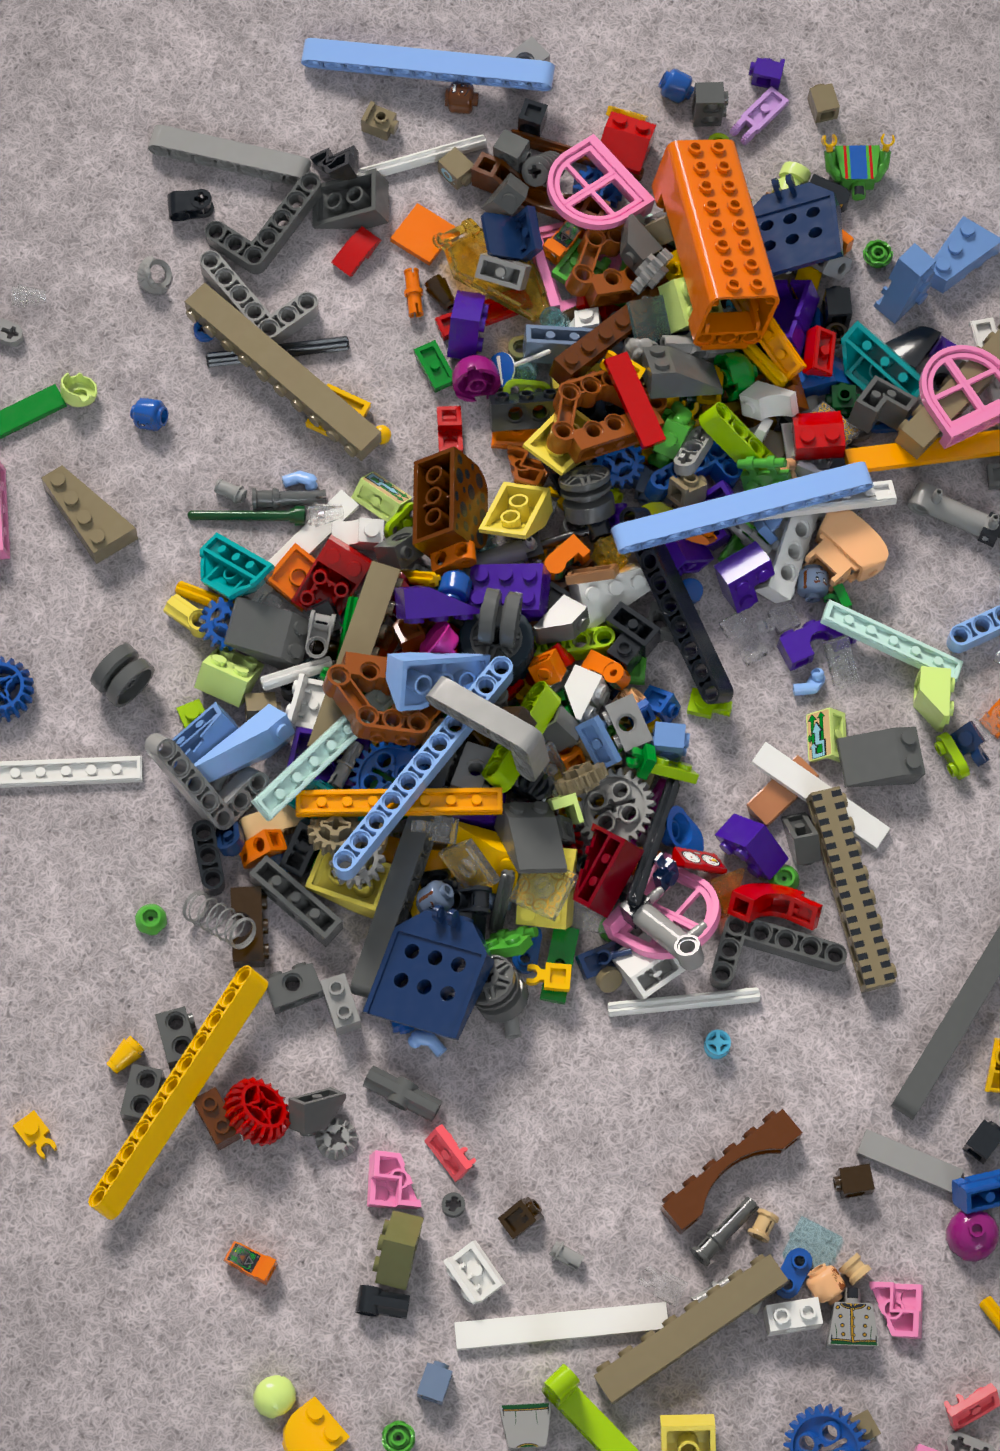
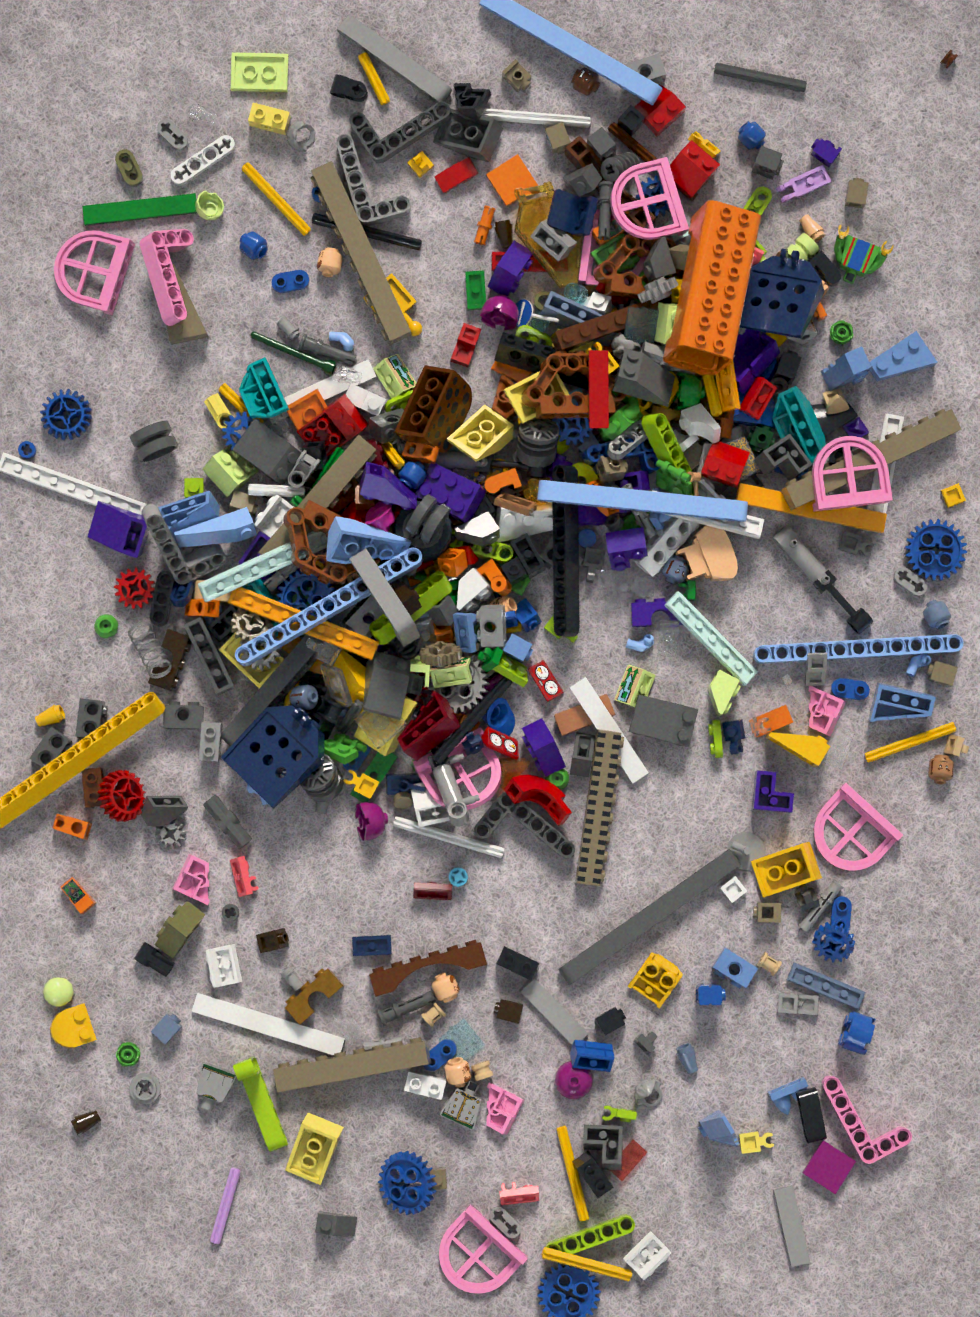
camera: 25 degrees right, 15 degrees up
(40, 454) = (156, 255): none -> bright pink beam
(48, 345) = (201, 158): none -> white beam
(76, 227) = (259, 72): none -> yellowish green tile
(109, 269) = (269, 118): none -> light yellow brick
(120, 795) = (119, 529): none -> dark purple slope
(154, 355) = (276, 199): none -> yellow axle
(179, 859) = (127, 584): none -> red gear
(207, 1178) = (72, 826): none -> orange leg
(211, 439) = (290, 281): none -> blue plate
(214, 185) = (374, 78): none -> yellow axle
(248, 398) = (329, 262): none -> light nougat head
(308, 256) = (420, 164): none -> yellow tile
(545, 211) = (605, 209): none -> dark grey pin
(564, 98) = (663, 112): none -> red slope
(580, 1017) = (371, 820): none -> magenta cylinder
(604, 798) = (452, 674): none -> yellowish green panel
(611, 1242) = (299, 1006): none -> pearl gold arch
(648, 1171) = (371, 945): none -> dark blue plate
(656, 24) = (760, 77): none -> dark grey axle
(694, 1073) = (432, 891): none -> dark red plate
(712, 613) = (593, 560): none -> dark grey plate
(716, 772) = (545, 681): none -> slope
(717, 553) = (614, 522): none -> dark grey bush
(763, 1184) = (445, 987): none -> light nougat head
(786, 154) = (811, 228): none -> light nougat cone
(838, 1117) = (517, 963): none -> black brick
(907, 329) = (835, 401): none -> tan tile

